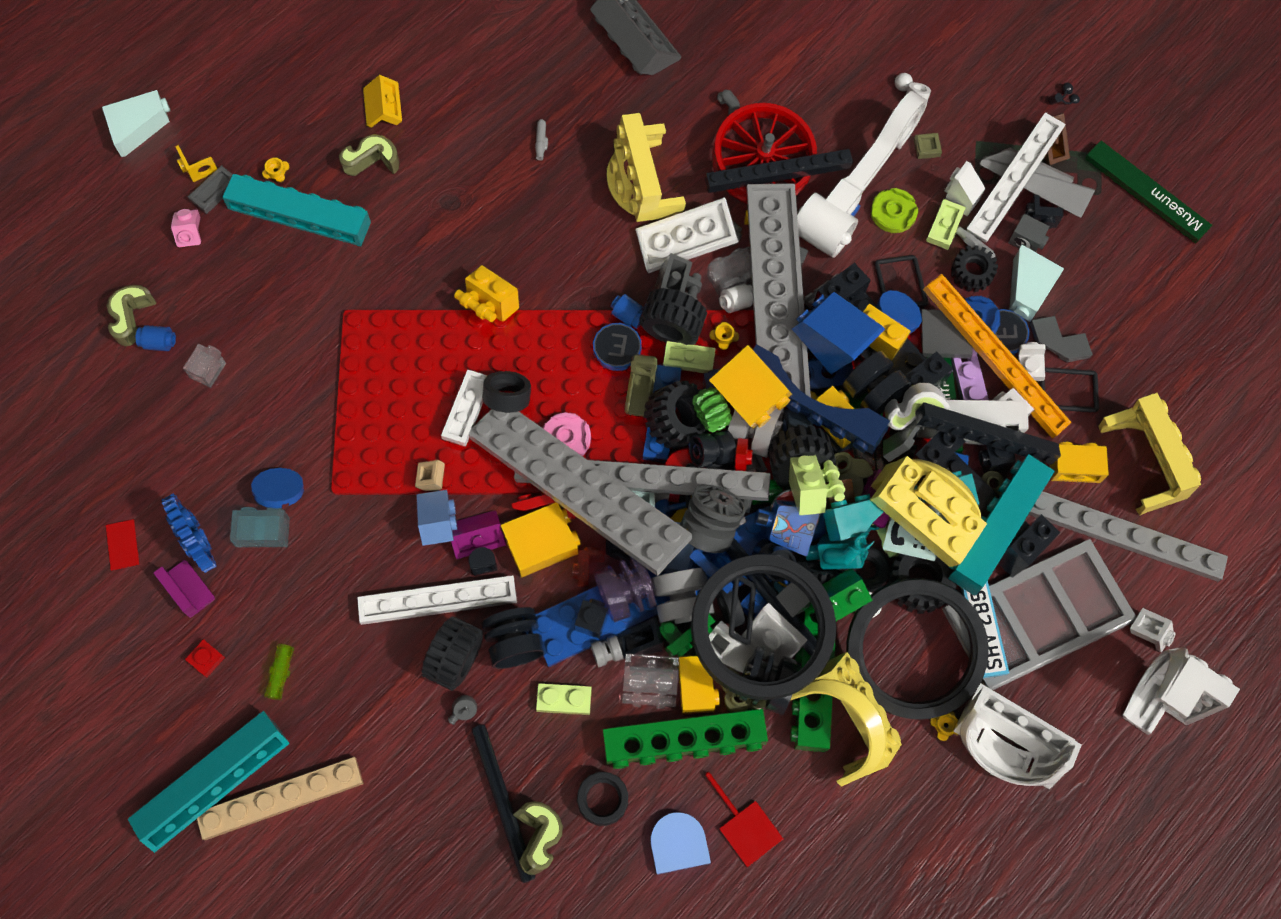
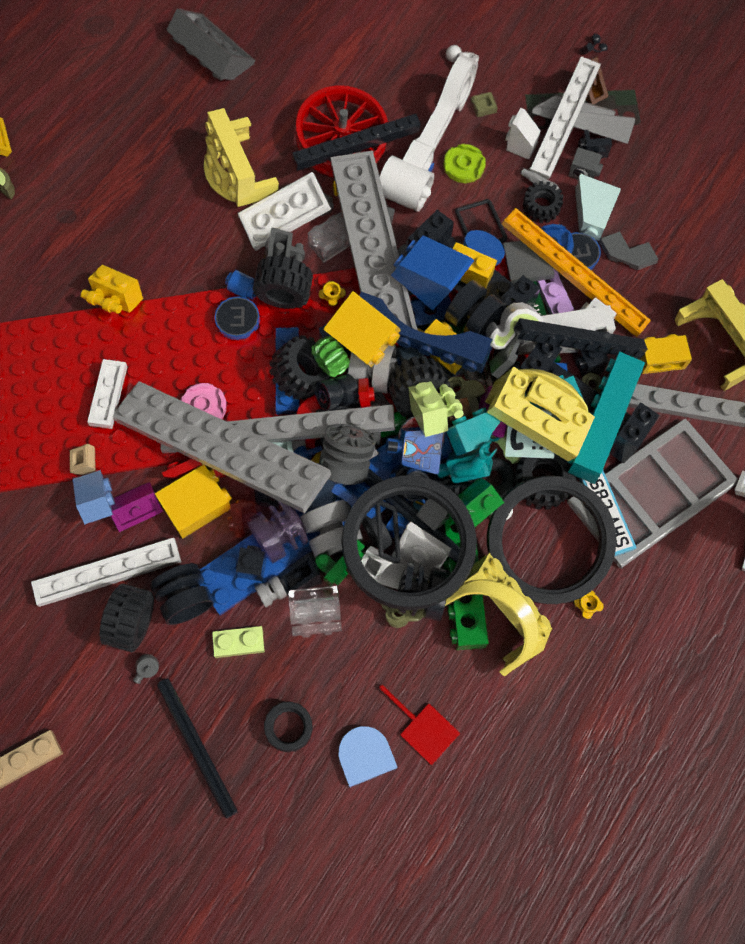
camera: 10 degrees left, 0 degrees up
(482, 561) = (143, 529): black brick -> none
(504, 401) = (141, 372): black tyre -> none
(541, 141) = (141, 150): light grey piece -> none
(546, 835) = (241, 769): olive animal -> none
(640, 384) = (263, 346): olive animal -> none
(689, 357) = (303, 316): yellowish green plate -> none
(696, 687) = (358, 610): yellow brick -> none
(730, 99) = (301, 88): dark grey arm -> none
(736, 298) = (337, 259): white brick -> none
(750, 721) = (413, 632): green brick -> none
(945, 224) = (511, 168): yellowish green plate -> none
(1032, 359) = (607, 270): white bracket -> none
(1051, 748) = (685, 608): white piece -> none
(1079, 372) = (651, 276): black piece -> none
(1148, 192) = (680, 115): dark green tile -> none

